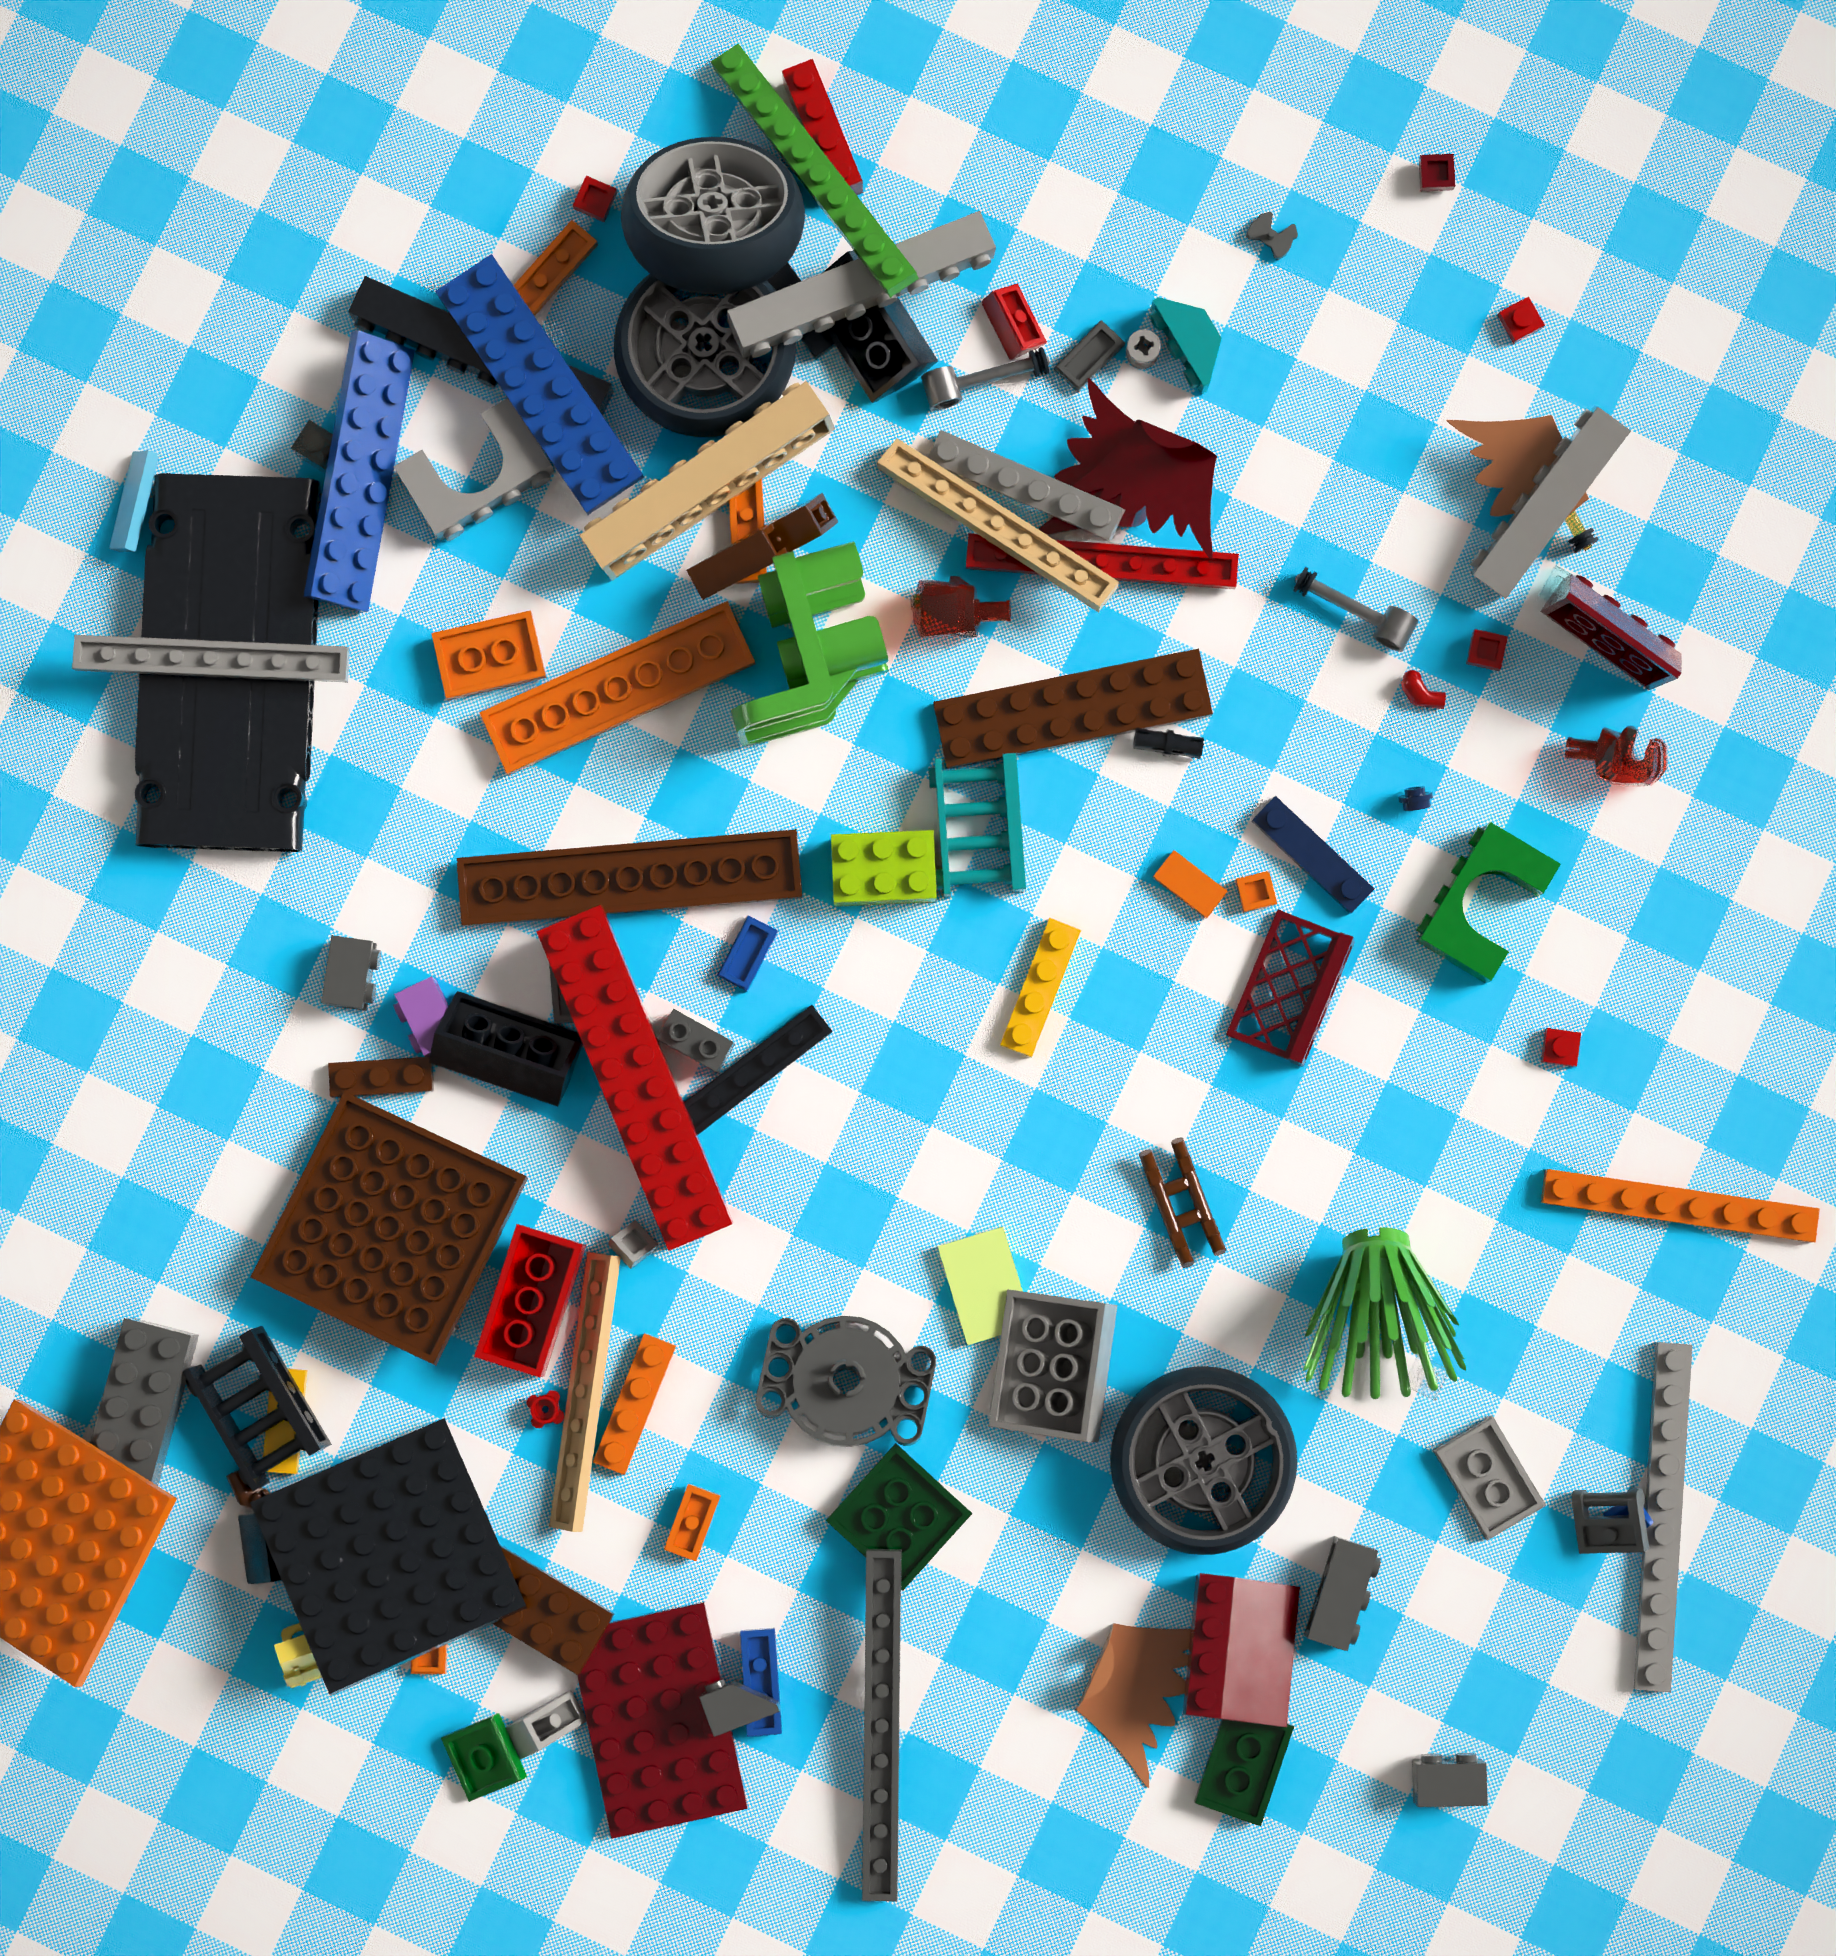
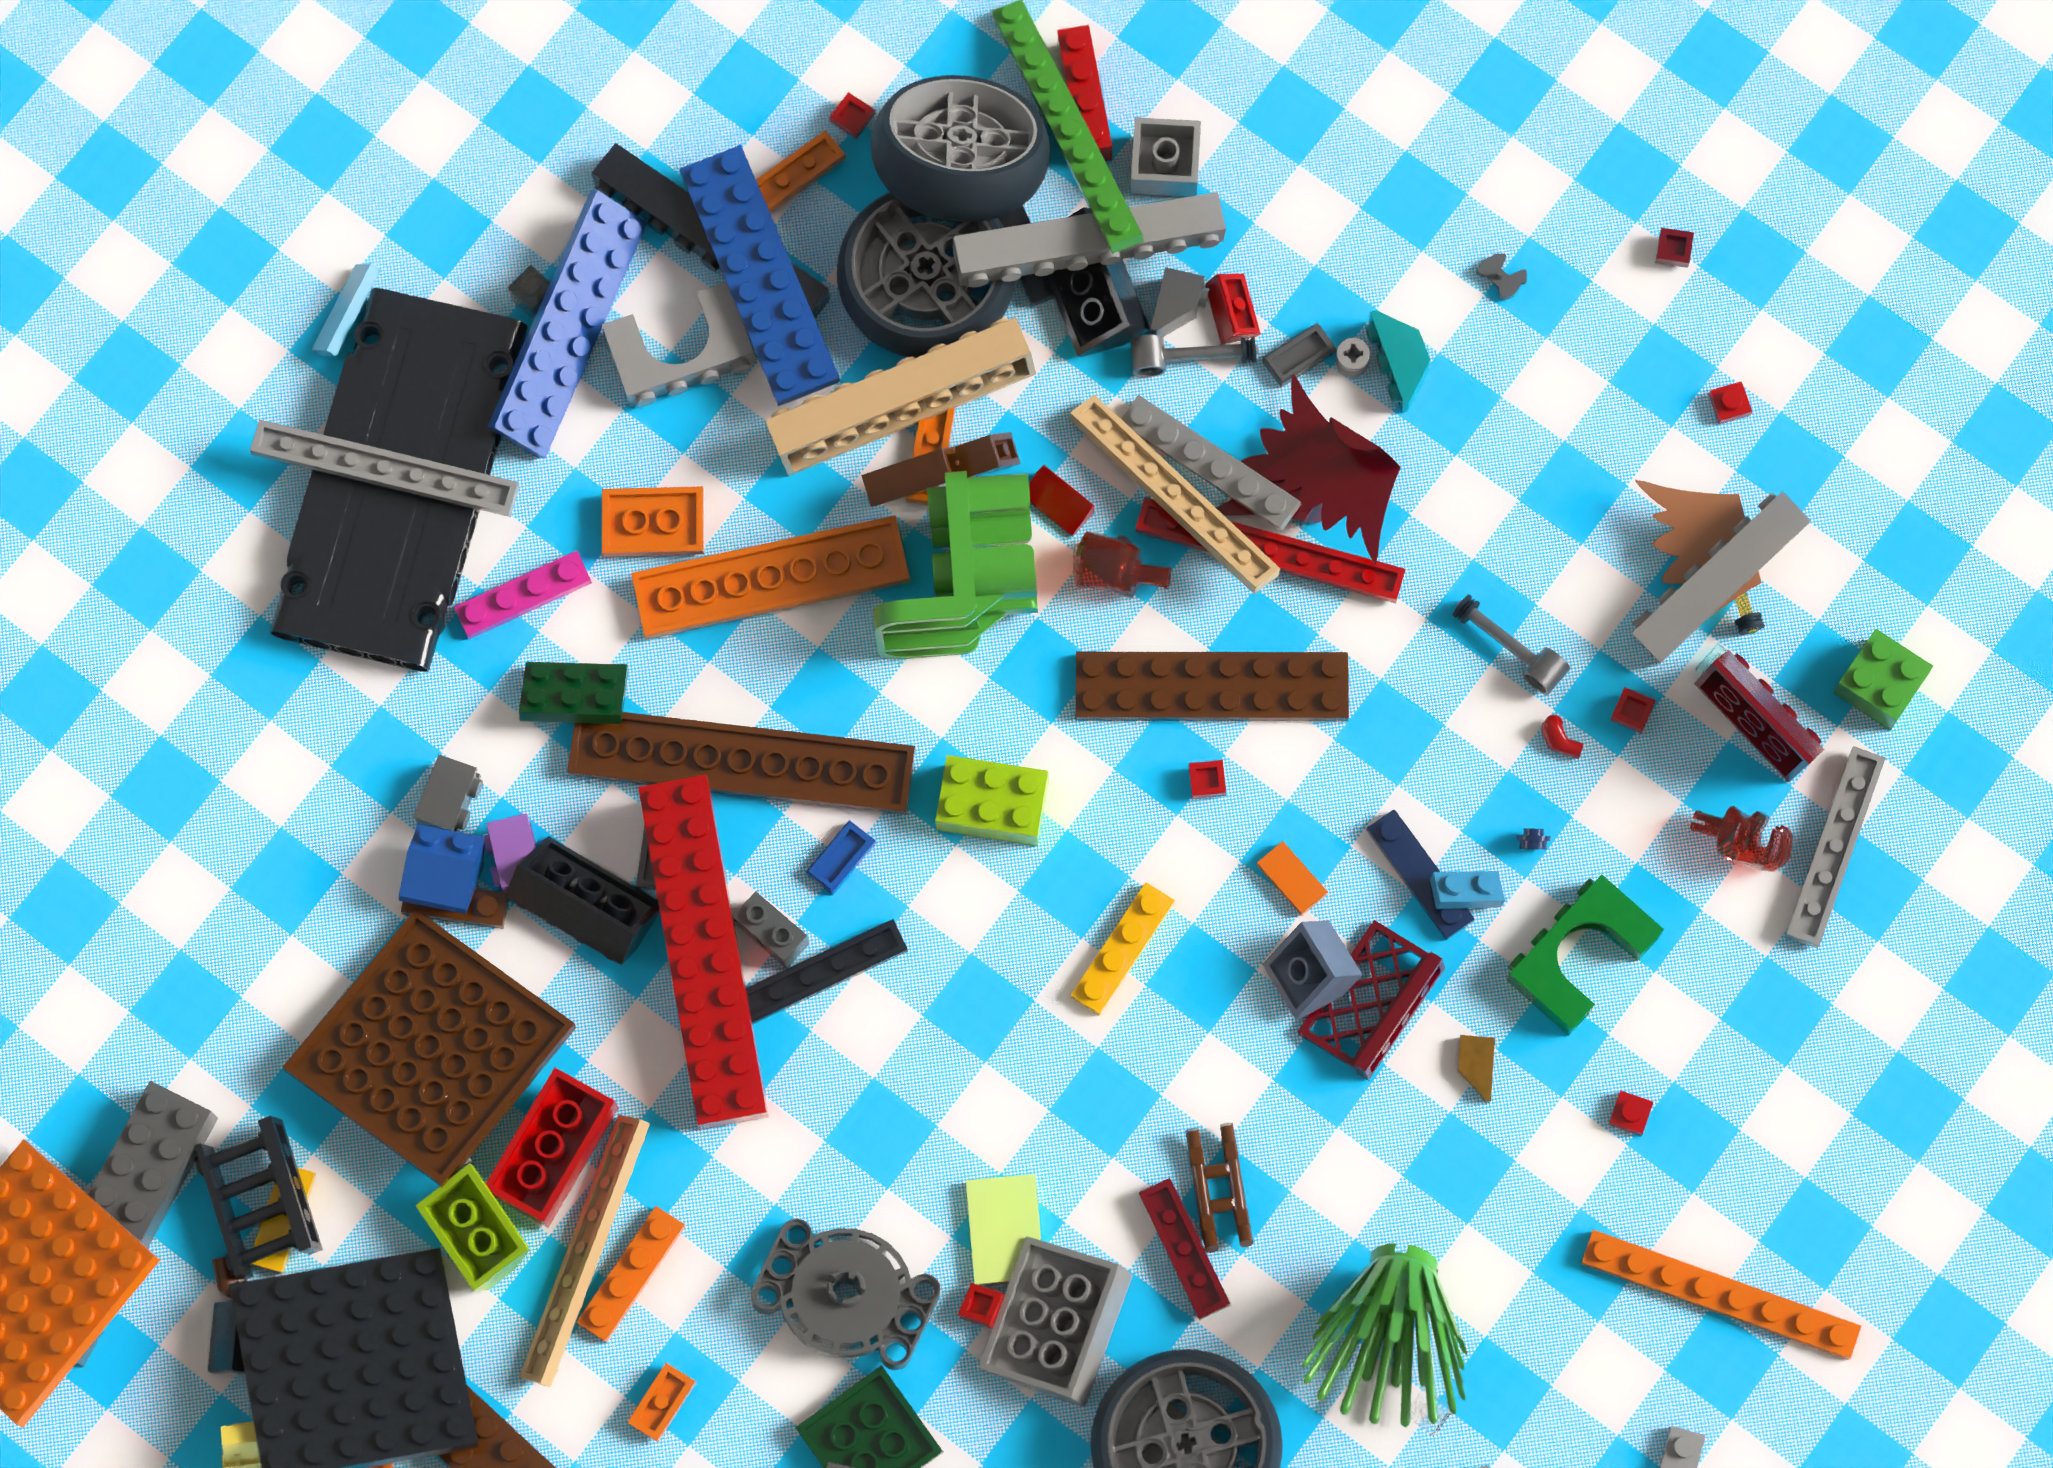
camera: 15 degrees right, 10 degrees down
(361, 1048) = (442, 868): none -> blue slope
(377, 755) = (523, 595): none -> dark pink plate
(449, 844) = (573, 692): none -> dark green plate
(473, 1398) = (474, 1229): none -> lime slope
(539, 1417) = (549, 1267): red plate -> none
(633, 1244) = (664, 1115): light grey plate -> none
(885, 553) = (1059, 501): none -> red slope
(917, 180) = (1165, 157): none -> light grey brick
(959, 326) = (1178, 301): none -> dark grey slope
(978, 1365) = (981, 1305): none -> red plate
(1008, 840) = (1120, 798): teal fence -> none
(1088, 803) = (1207, 779): none -> red plate
(1161, 1269) = (1184, 1249): none -> dark red plate
(1168, 743) = (1298, 737): black pin -> none
(1228, 971) = (1311, 967): none -> sand blue slope
(1256, 891) = (1356, 899): orange tile -> none
(1362, 862) = (1467, 889): none -> dark azure plate
(1404, 1029) = (1476, 1063): none -> pearl gold tile
(1707, 746) = (1835, 847): none -> light grey plate
(1723, 570) = (1883, 679): none -> bright green brick

